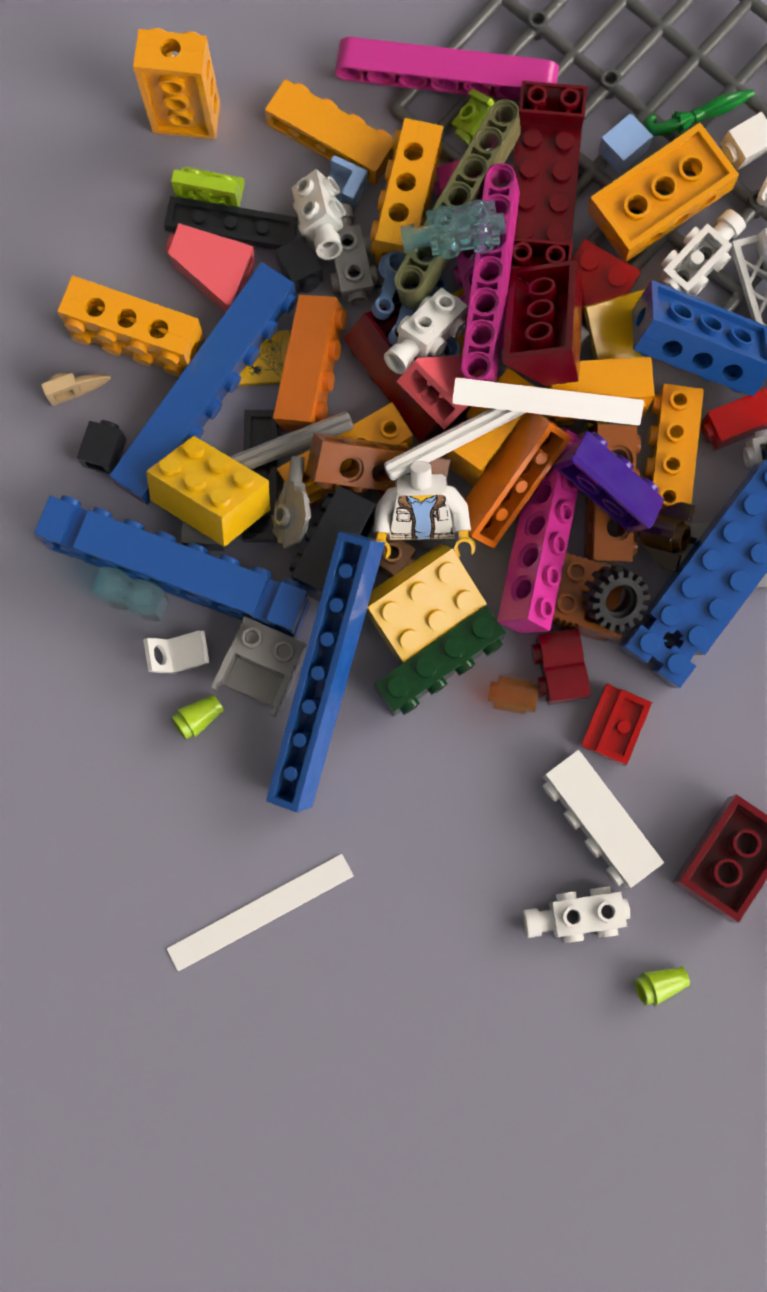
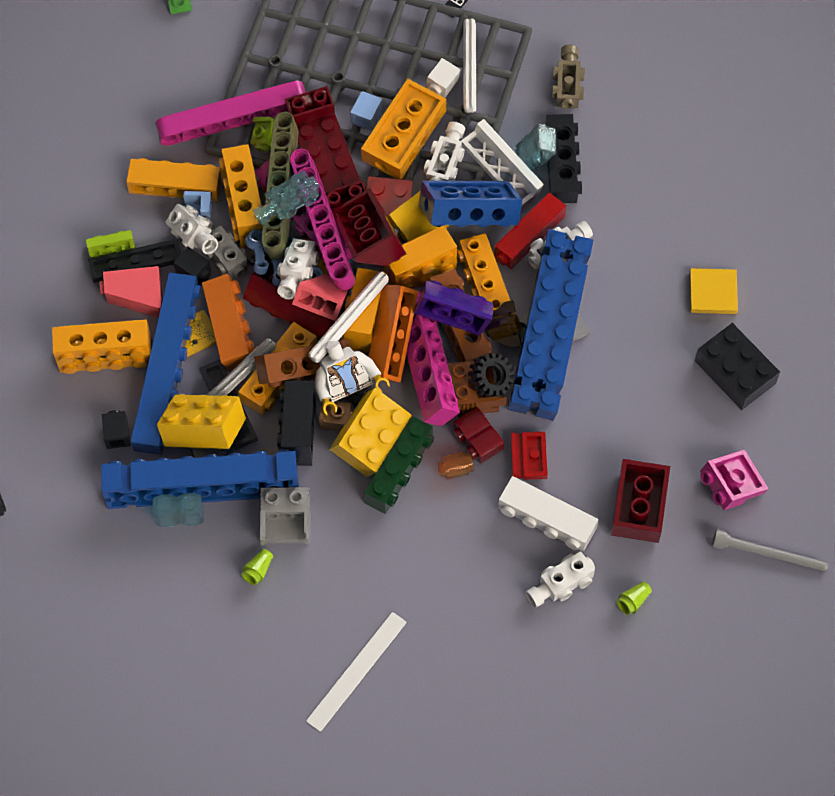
camera: 25 degrees left, 15 degrees down
(67, 386) = (74, 402): tan plate -> none
(177, 89) = (68, 188): light orange brick -> none
(178, 652) = (228, 532): white bracket -> none
(292, 507) = (261, 409): light grey piece -> none
(325, 671) = (330, 495): blue brick -> none
(547, 401) = (393, 275): white sticker -> none
(682, 120) = (395, 83): green piece -> none

